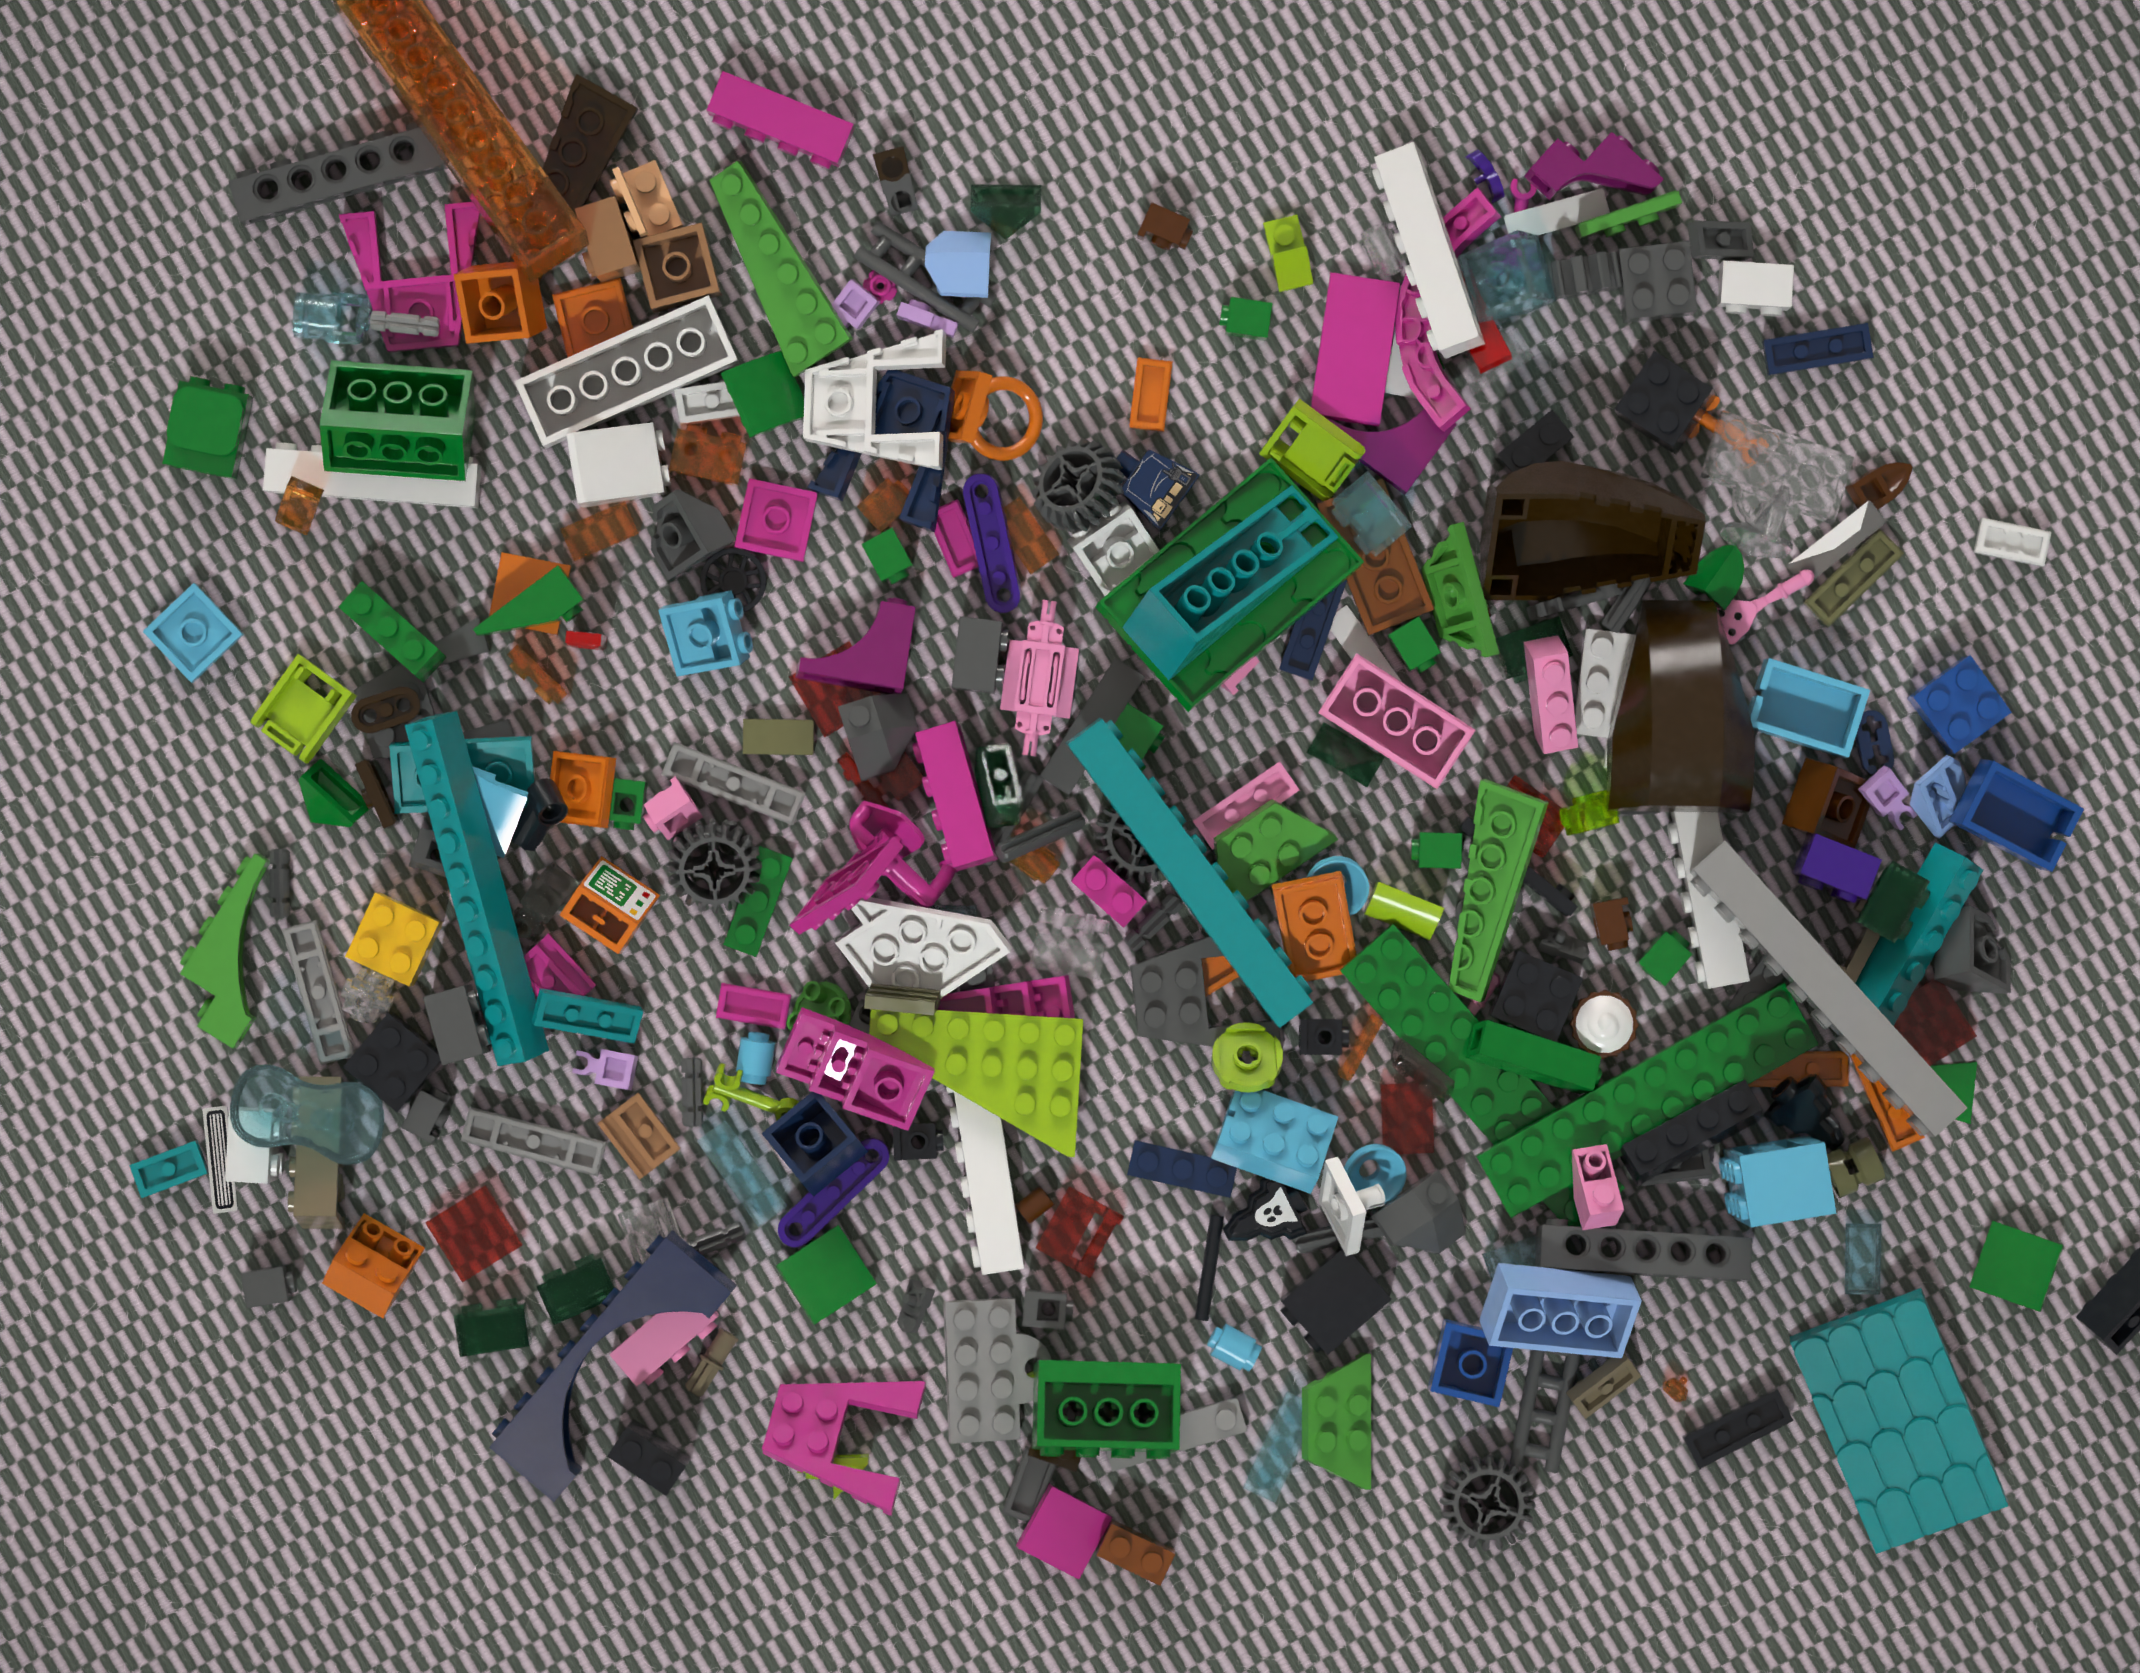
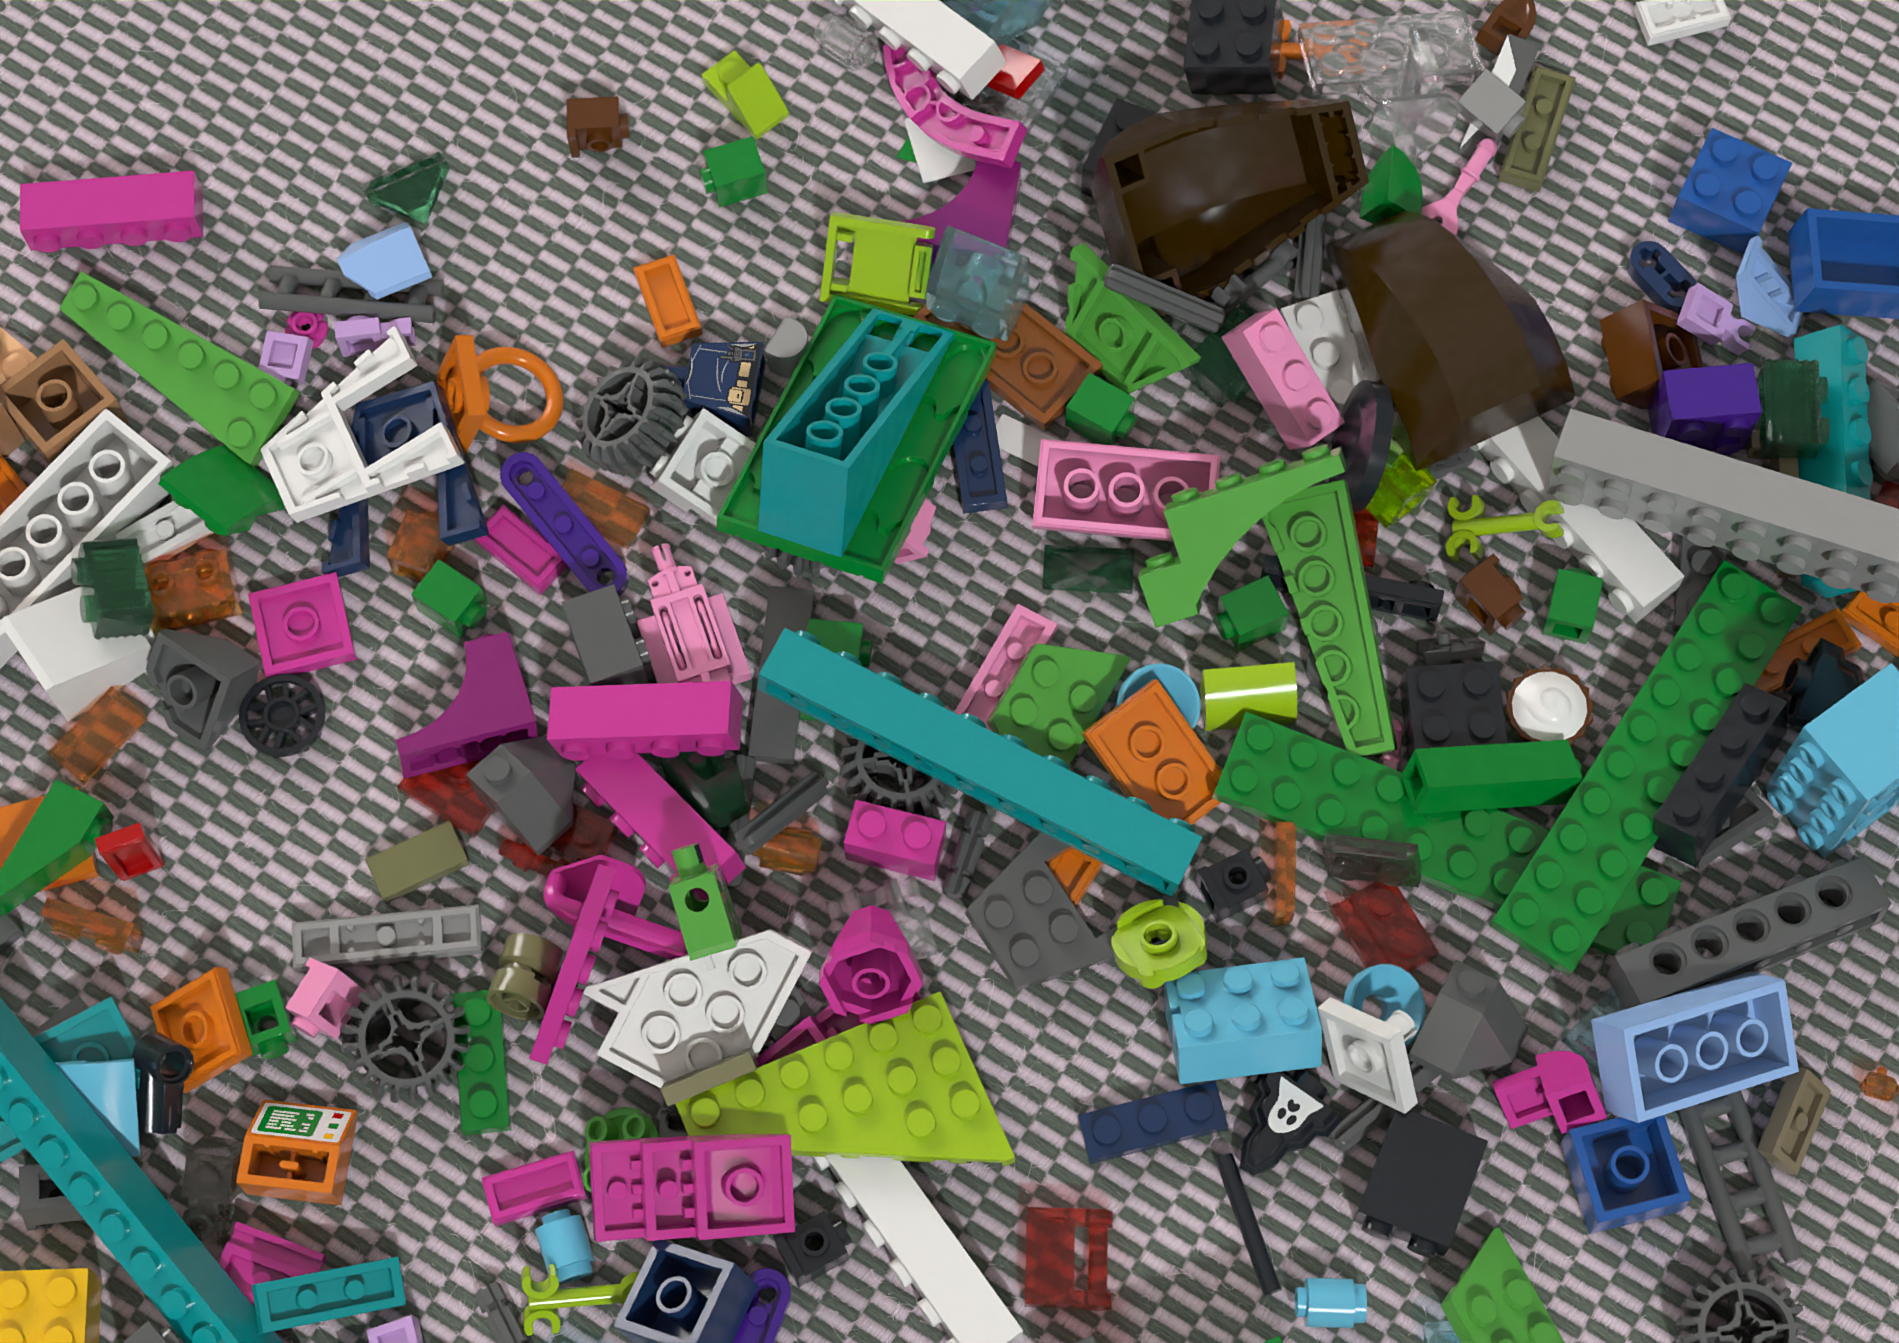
camera: 30 degrees left, 20 degrees down
(656, 441) = (113, 588): none -> clear green brick
(706, 633) = (273, 781): medium azure plate -> none
(814, 861) = (525, 978): none -> olive wheel
(896, 180) = (270, 211): leg -> none
(951, 889) = (705, 924): none -> bright green torso
(976, 729) = (645, 719): none -> dark pink brick
(1034, 1204) = (997, 1253): reddish brown hinge -> none
(1045, 981) = (871, 968): none -> dark pink cone
(1217, 482) = (786, 347): none -> light grey brick
(1355, 348) = (869, 146): dark pink slope -> none
(1446, 783) = (1214, 520): none -> bright green arch
(1457, 1287) = (1555, 1087): none -> dark pink brick
(1497, 595) = (1164, 298): none -> dark grey axle
(1576, 775) = (1364, 440): none -> black piece
(1595, 1187) = (1653, 882): bright pink slope -> none
(1626, 862) = (1472, 524): none -> lime bar
(1807, 708) = (1575, 263): medium azure piece -> none
(1823, 553) = (1492, 107): none -> light grey brick

